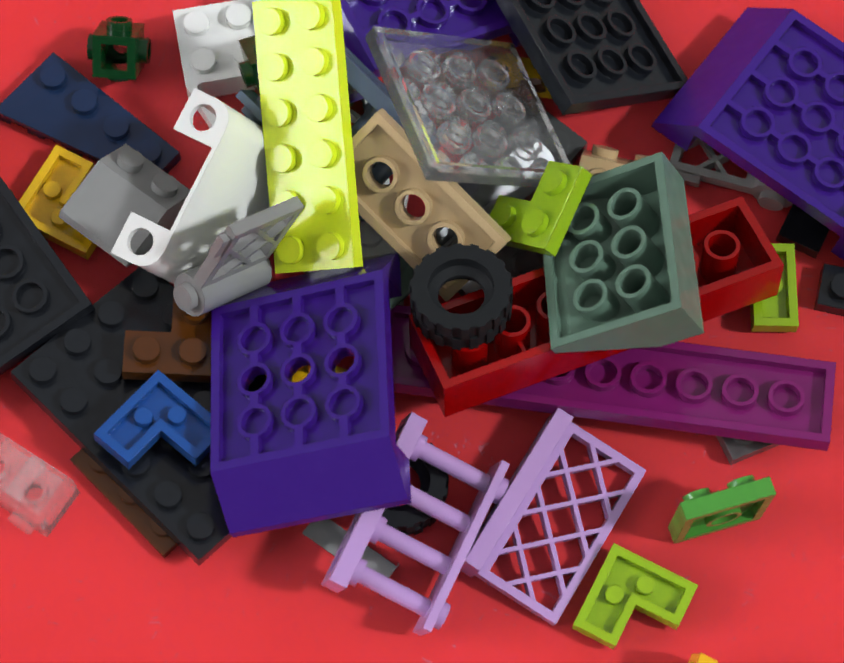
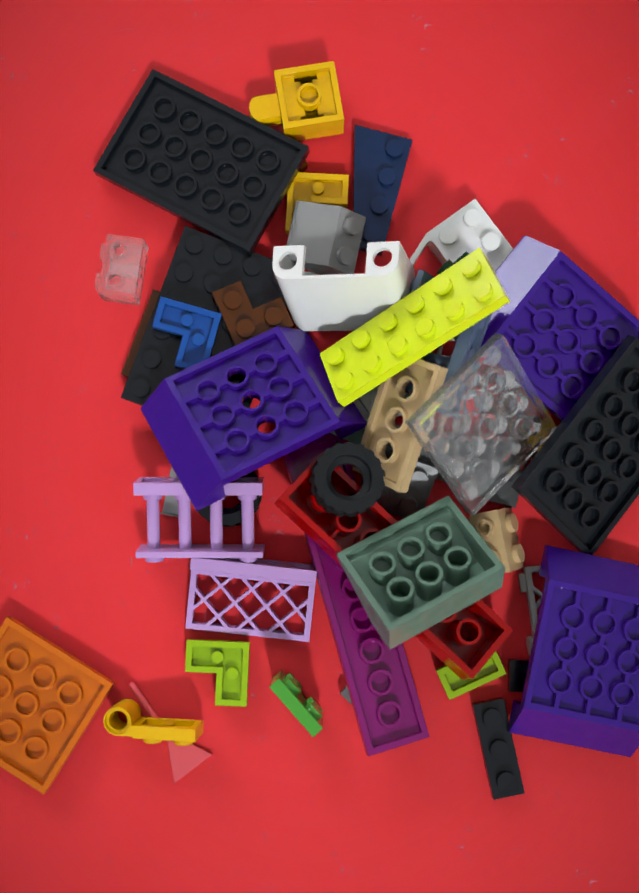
camera: 65 degrees right, 15 degrees up
(109, 58) = (431, 179): dark green brick -> none
(236, 260) = (303, 326): light grey piece -> none
(545, 219) = (430, 509): lime plate -> none

